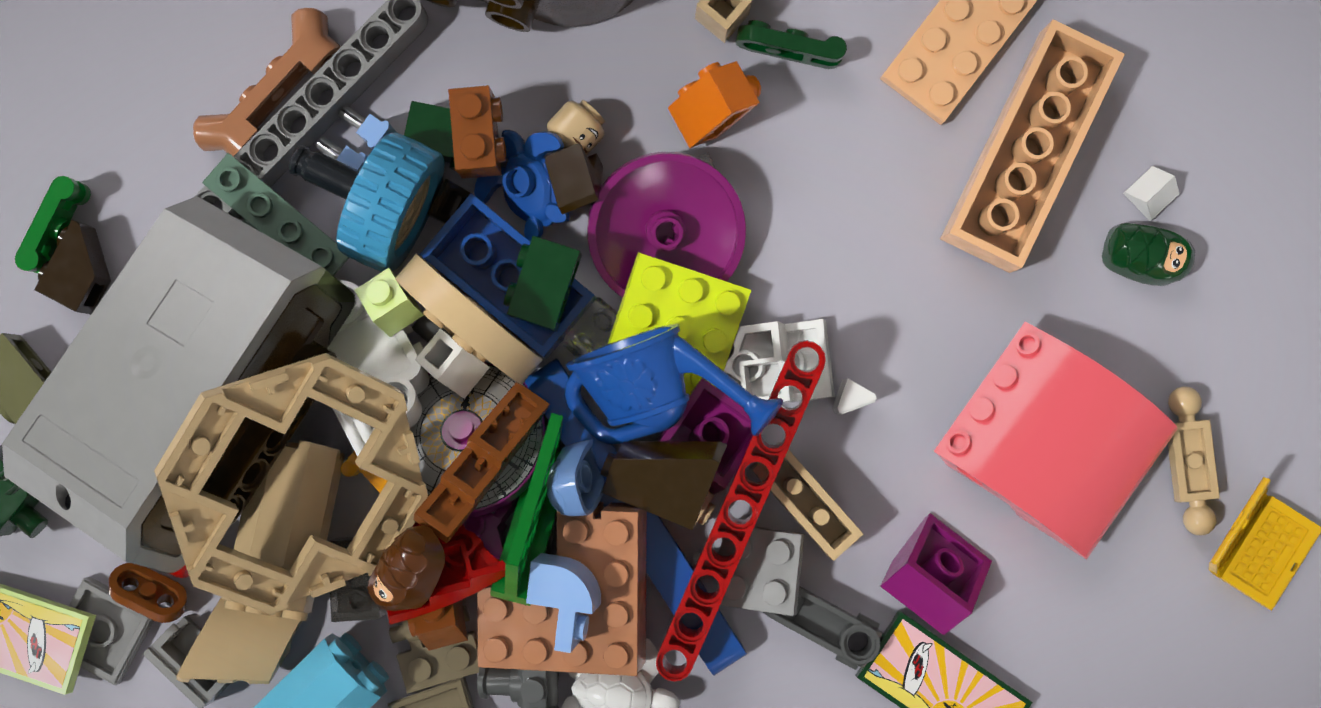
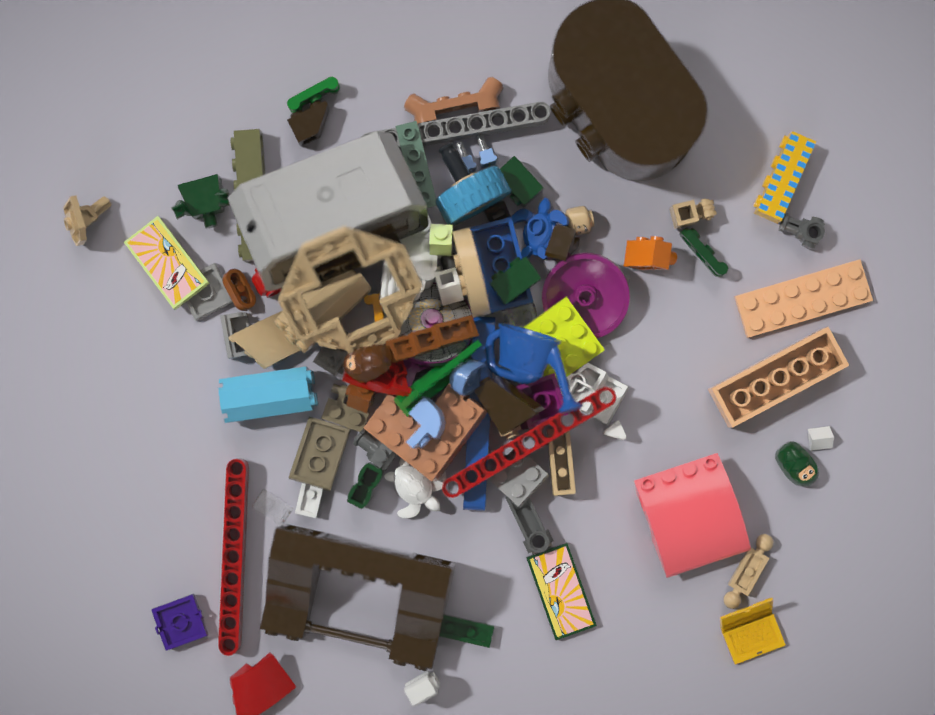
camera: 45 degrees right, 0 degrees up
(475, 131) = (535, 187): dark orange brick -> none
(937, 575) = (595, 537): magenta slope -> none

